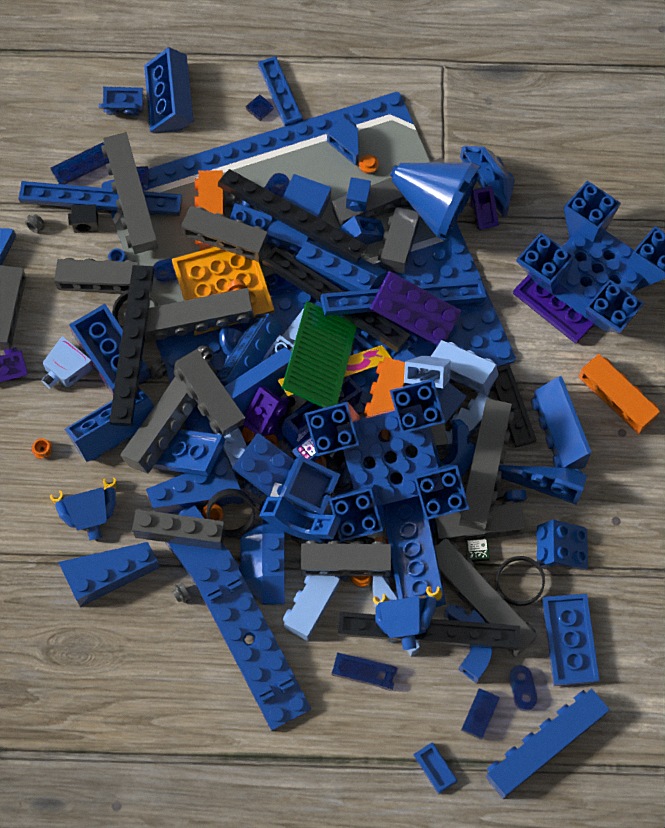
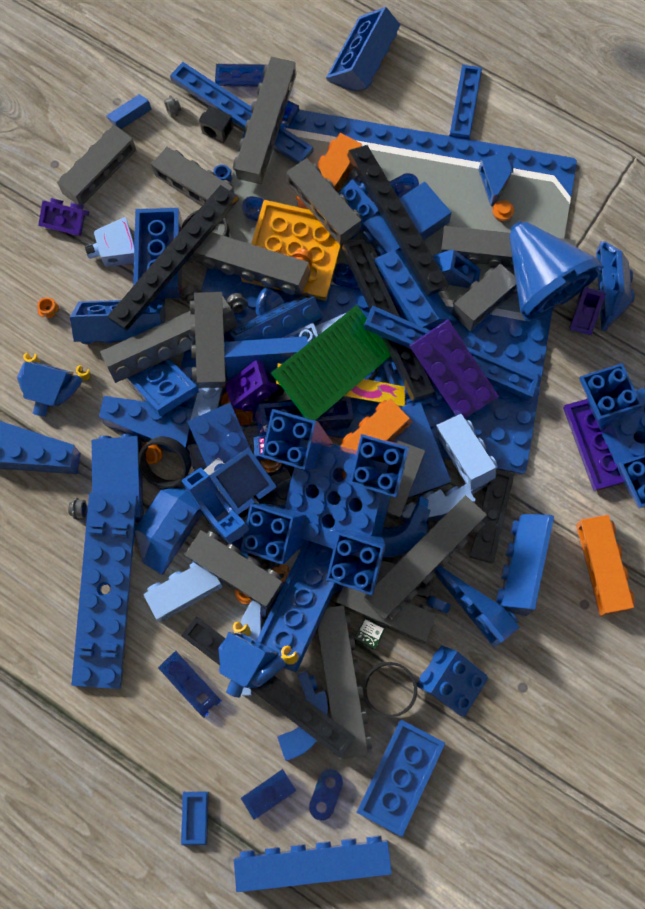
camera: 35 degrees right, 5 degrees up
(122, 99) = (317, 36): blue bracket -> none
(178, 529) = (104, 450): dark grey brick -> none
(259, 107) = (437, 107): clear blue tile -> none
(358, 194) = (470, 232): blue brick -> none
(429, 368) = (428, 441): light blue torso -> none

